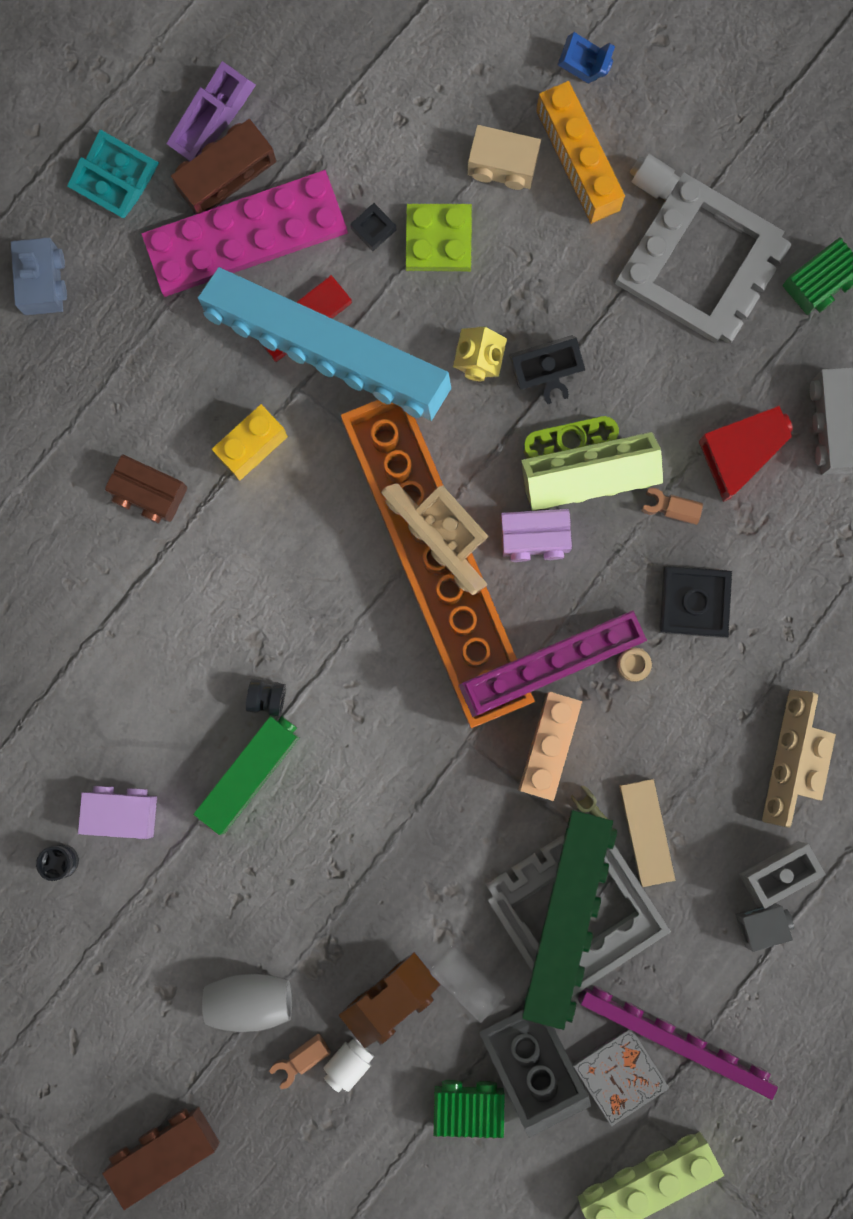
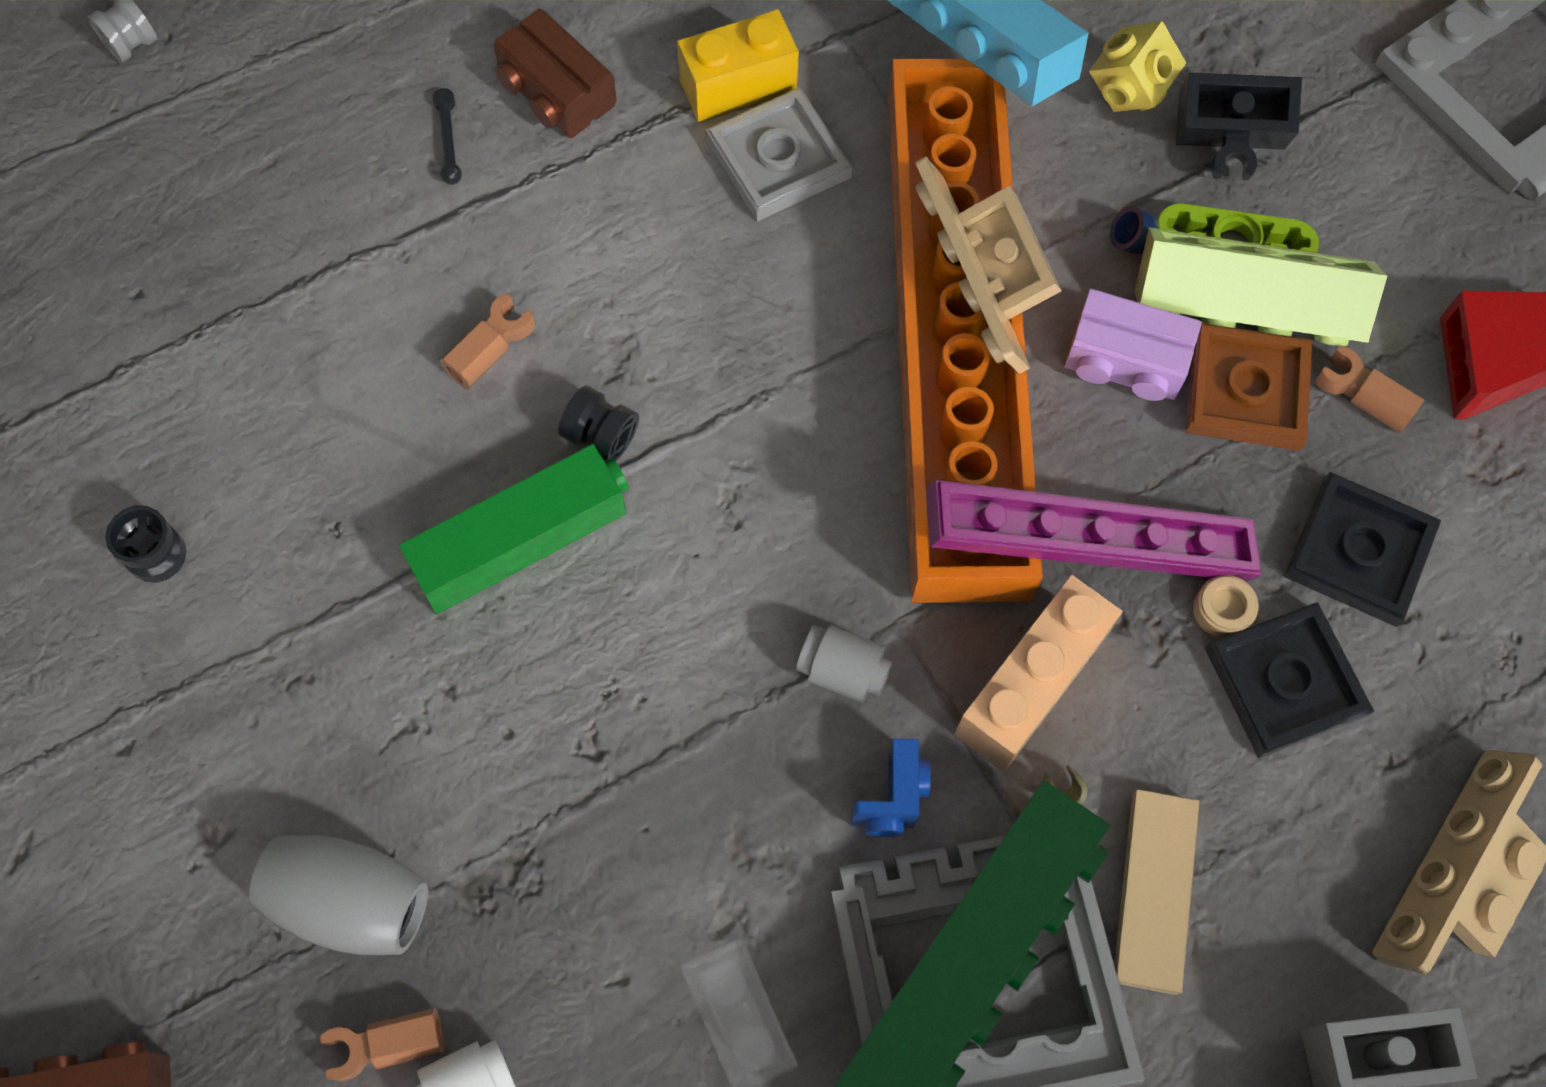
camera: 15 degrees right, 15 degrees down
(88, 527) = (445, 102): none -> black hinge
(117, 814) = (279, 507): lavender brick -> none
(182, 672) = (486, 343): none -> nougat bar
(294, 485) = (778, 154): none -> light grey tile
(390, 1001) = (559, 1001): reddish brown brick -> none
(448, 779) = (844, 663): none -> light grey brick
(504, 828) = (907, 782): none -> blue bracket
(511, 458) = (1131, 229): none -> dark blue hinge
(607, 531) = (1249, 387): none -> dark orange plate
(679, 692) = (1288, 679): none -> black tile

